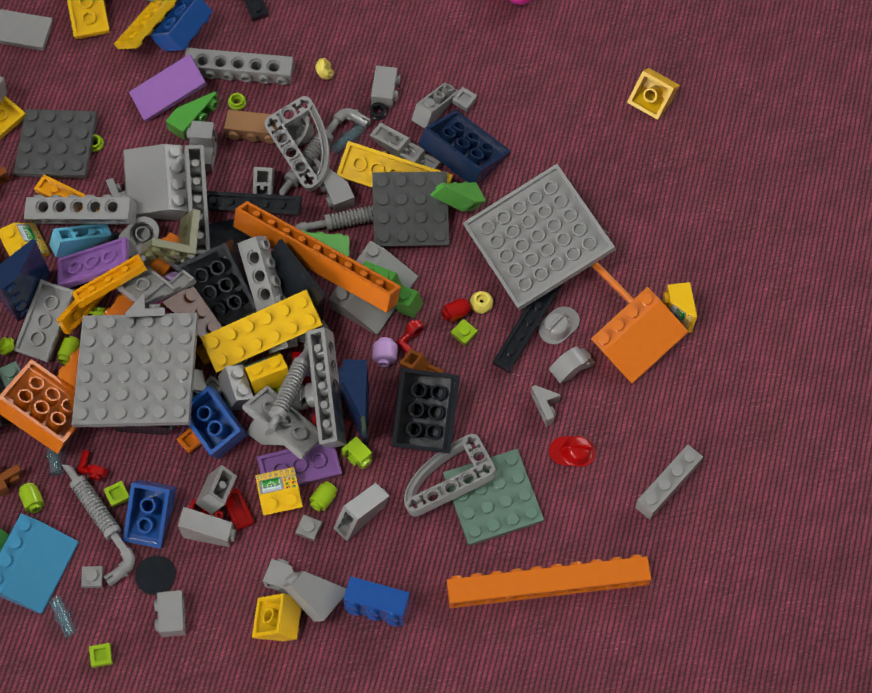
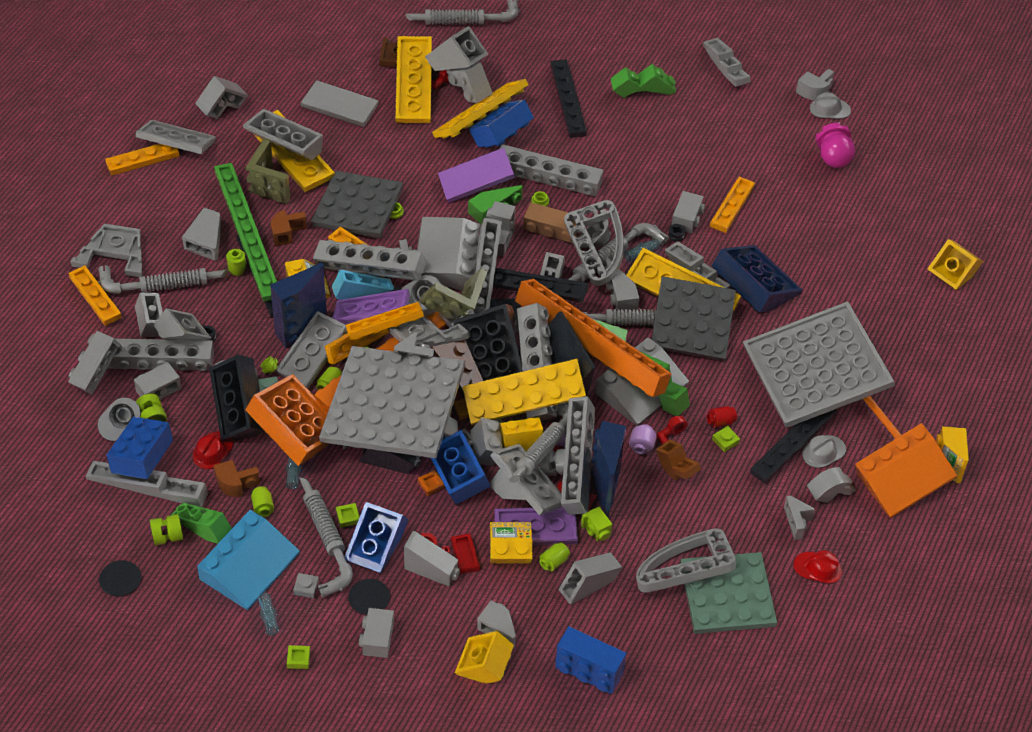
camera: 10 degrees right, 15 degrees down
(96, 472) = (331, 490): red plate -> none
(216, 489) = (448, 526): light grey brick -> none
(308, 528) = (533, 584): light grey plate -> none
(314, 594) = (526, 638): light grey slope -> none
(324, 69) = (631, 187): light yellow plate -> none
(424, 410) = (673, 495): black slope -> none
(426, 67) = (732, 204): none -> light orange tile
(433, 105) = (733, 235): light grey slope -> none
(461, 196) = (744, 313): bright green slope -> none
(464, 99) = (764, 236): light grey plate -> none
(479, 307) = (748, 415): light yellow plate -> none
(548, 582) = (772, 680): orange brick -> none
(668, 482) = (913, 612): light grey brick -> none

